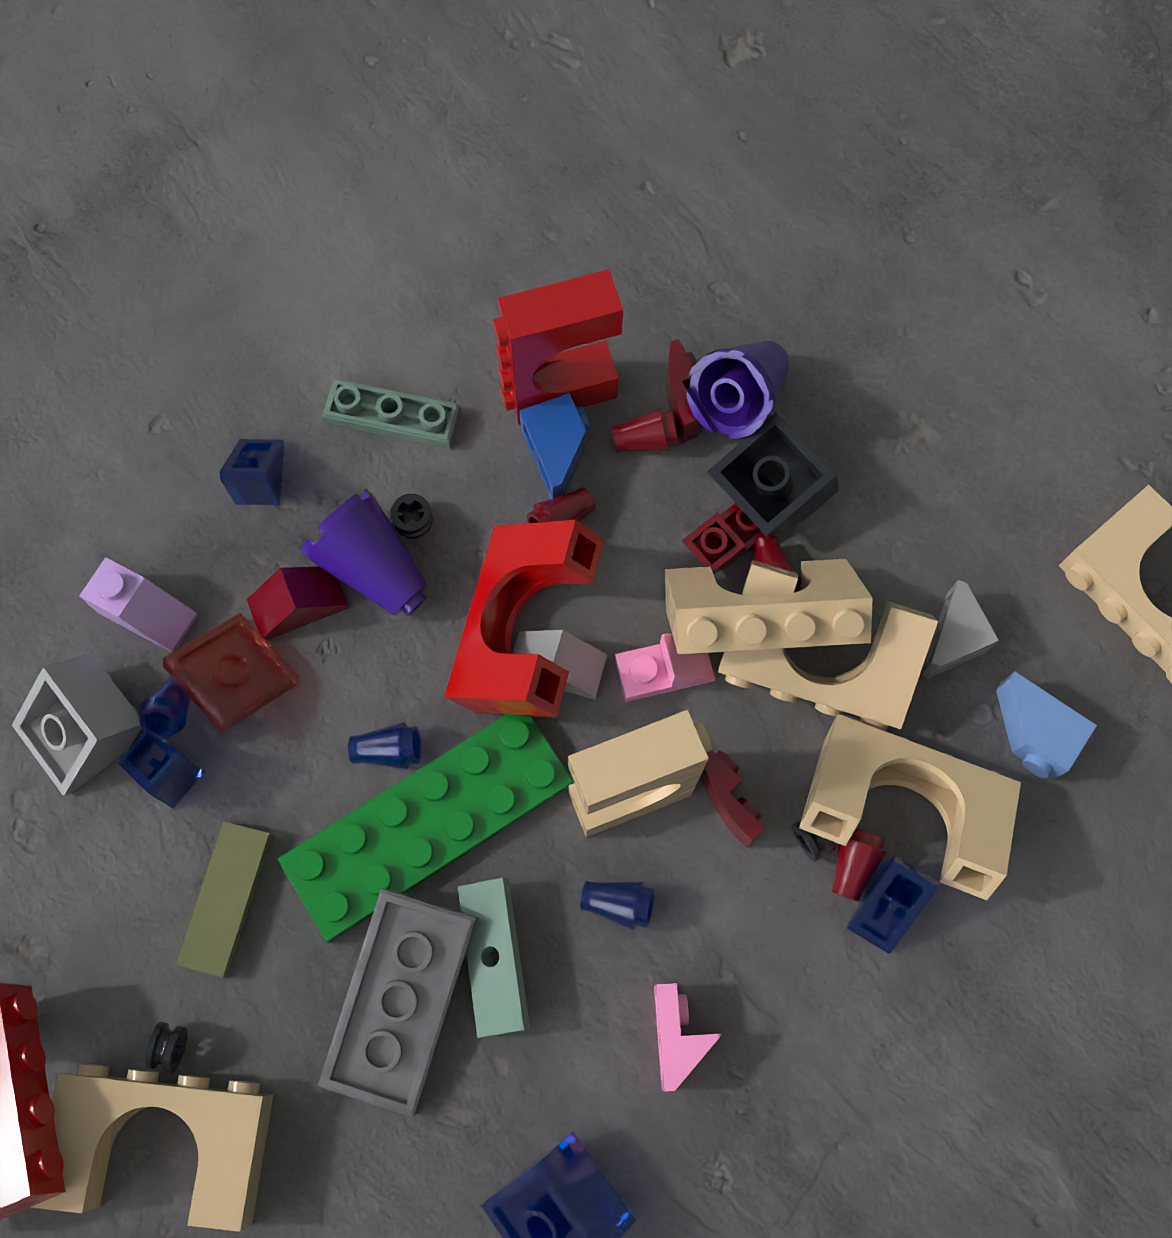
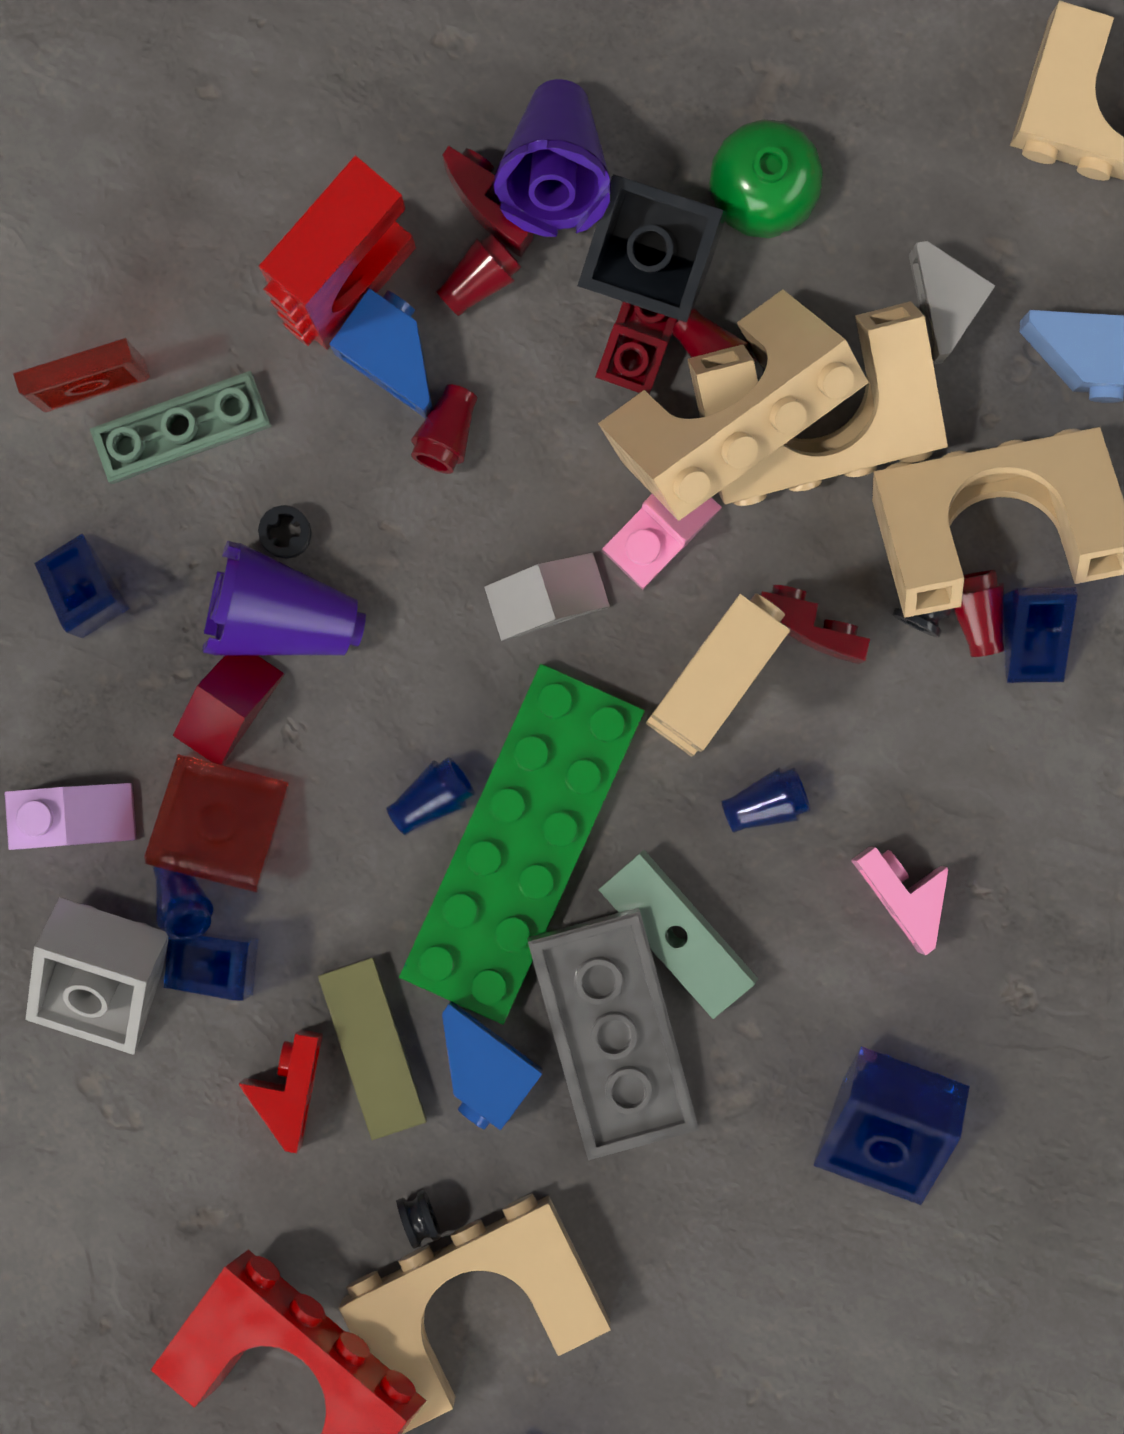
camera: 30 degrees left, 15 degrees up
(137, 899) = (287, 1106): none -> red slope
(289, 964) = (485, 1069): none -> blue slope
(349, 336) = (82, 375): none -> clear red tile
(516, 567) = (439, 525): red arch -> none
(878, 486) = (766, 178): none -> green cylinder

